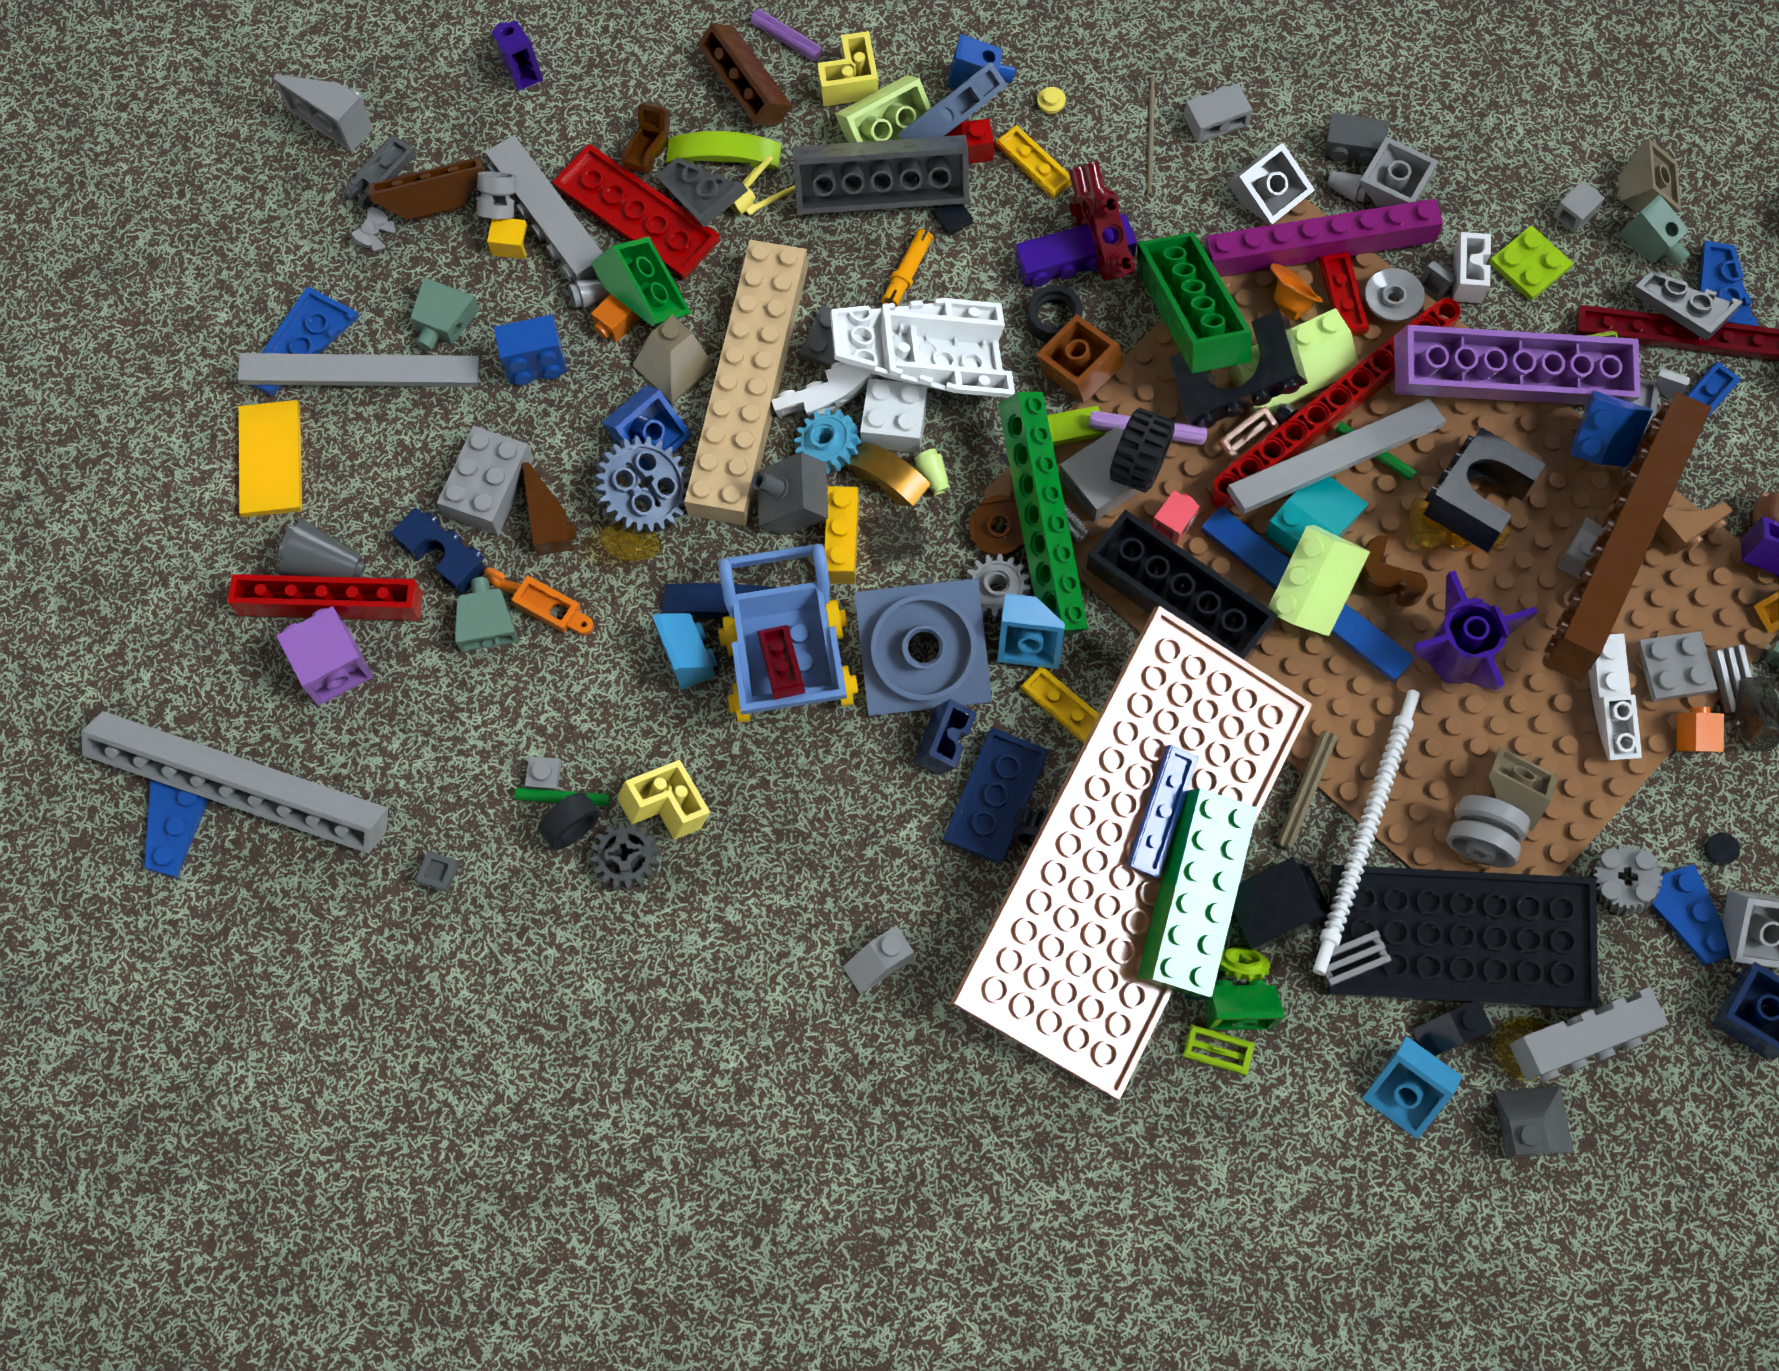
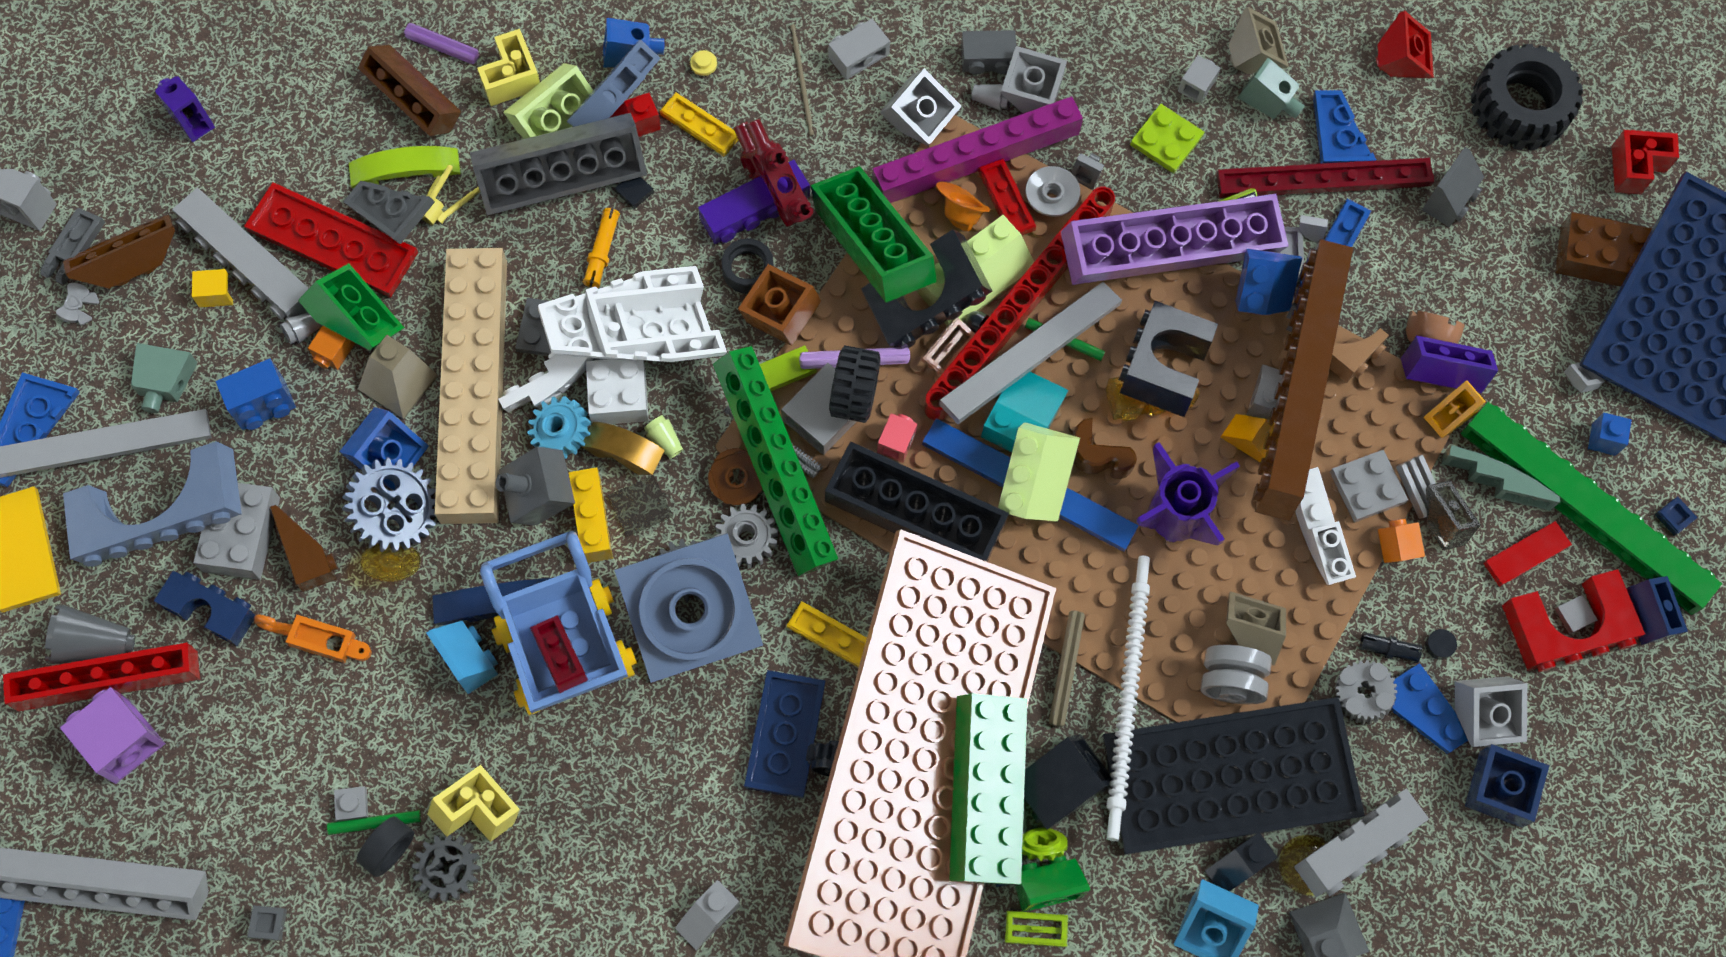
camera: 20 degrees left, 0 degrees up
(460, 442) = (206, 499): none -> sand blue arch
(483, 618) = (262, 664): sand green torso -> none
(498, 185) = (191, 240): light grey wheel -> none
(649, 138) = (329, 169): reddish brown animal -> none
(940, 746) = (723, 696): dark blue brick -> none
(1029, 633) = (785, 574): dark azure slope -> none
(1162, 811) = (941, 720): tile -> none
(1379, 947) = (1161, 802): light grey tile -> none
(1470, 267) = (1113, 145): white brick -> none
(1553, 586) = (1248, 435): none -> light orange slope
(1665, 840) = (1390, 647): none -> black pin
(1690, 308) = (1316, 155): dark grey wing -> none

